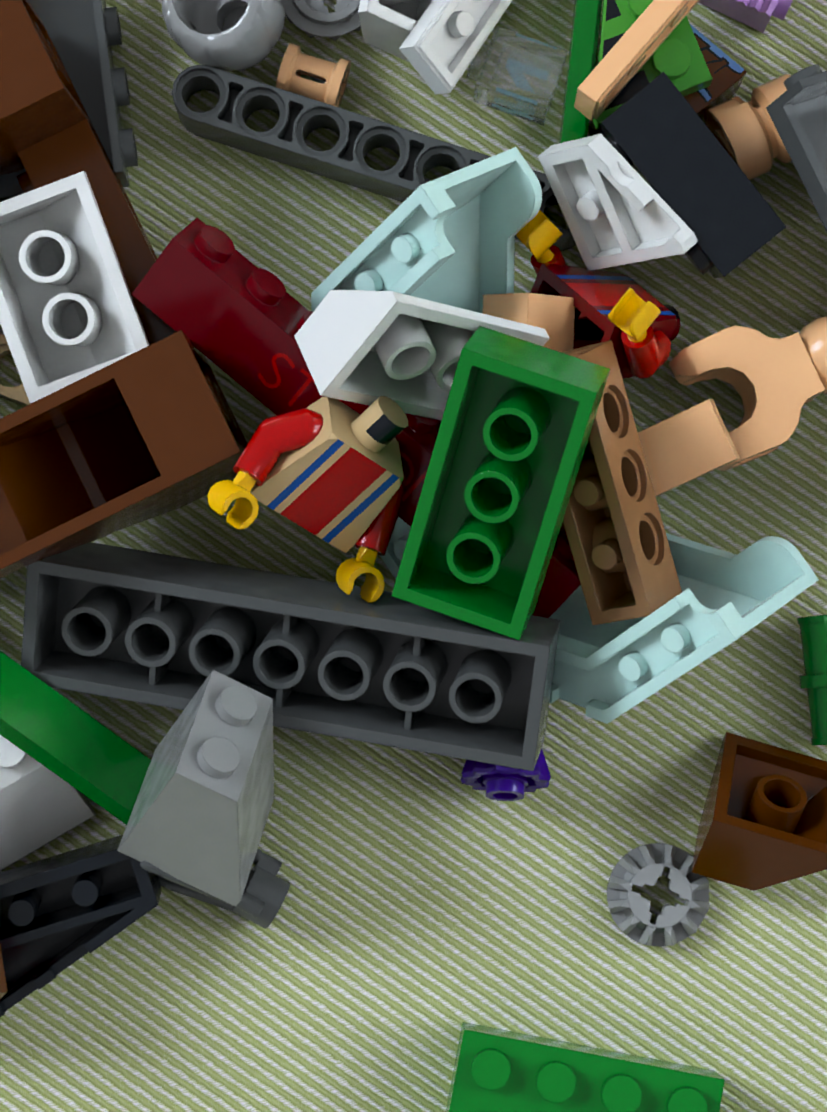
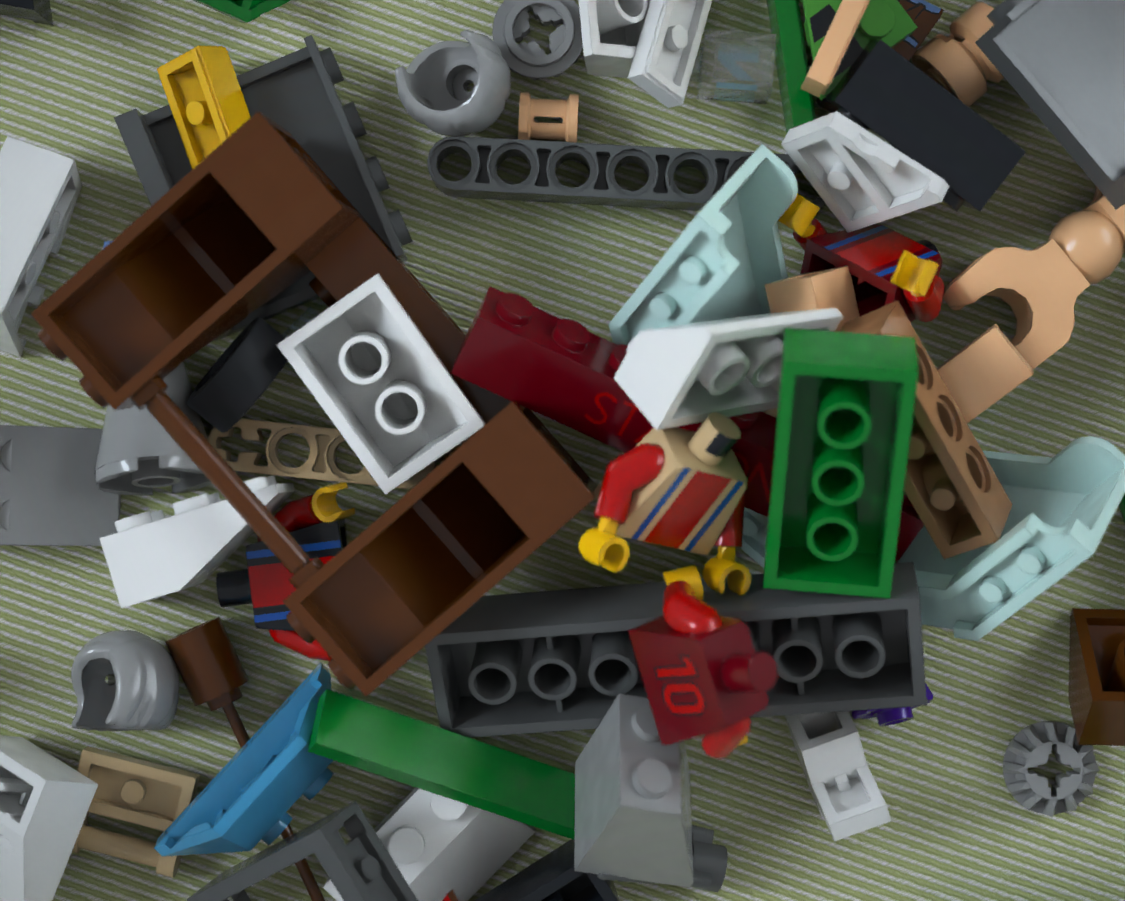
camera: 15 degrees left, 5 degrees up
(300, 661) = (700, 669): none -> dark red torso
(428, 826) = (838, 772): none -> white brick

